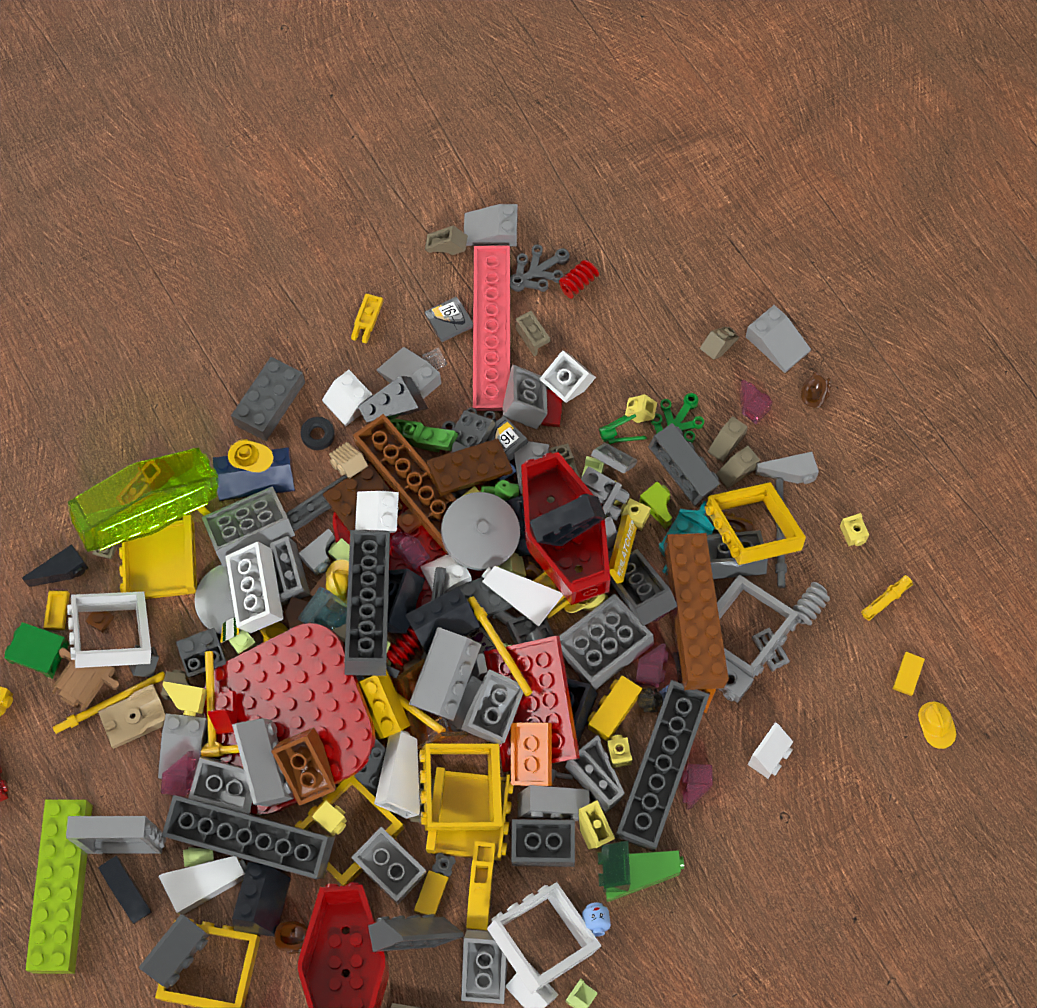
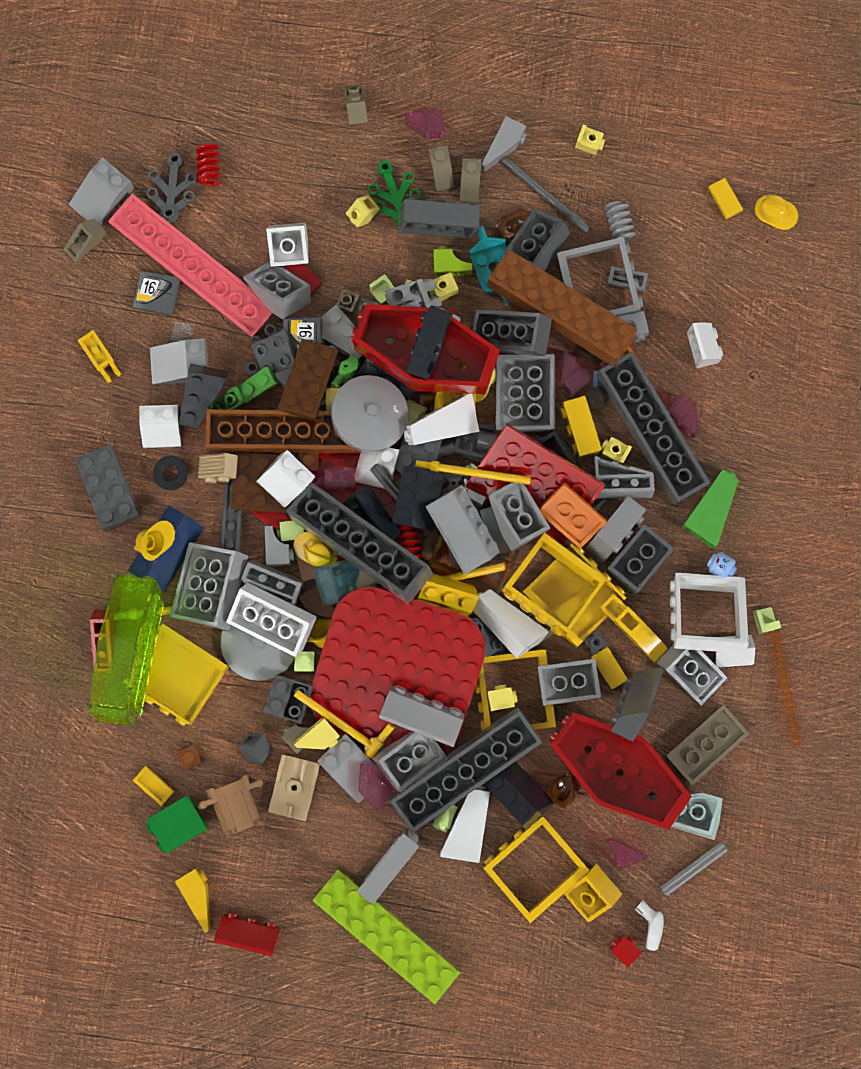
camera: 55 degrees left, 15 degrees up
(59, 568) = (121, 754): black slope -> none
(73, 720) = (259, 835): yellow bar -> none
(109, 602) = (188, 736): white window -> none
(125, 889) = (428, 888): black slope -> none
(174, 951) = (513, 884): dark grey slope -> none
(225, 712) = (355, 717): red slope -> none
(229, 630) = (286, 663): sticker -> none
(305, 766) = (450, 687): dark orange slope -> none
(531, 332) = (226, 239): dark tan panel -> none
(594, 826) = (659, 513): light yellow slope -> none
(608, 431) = (359, 251): green plant -> none
(614, 457) = (387, 265): light grey tile -> none
(615, 867) = (703, 523): clear green slope -> none
(622, 549) = (466, 317): yellow tile -> none
(764, 492) = (535, 182): yellow window -> none
(777, 339) = (390, 59): light grey slope -> none
(815, 390) = (457, 70): reddish brown hat -> none
(893, 592) = (659, 162): yellow pin -> none

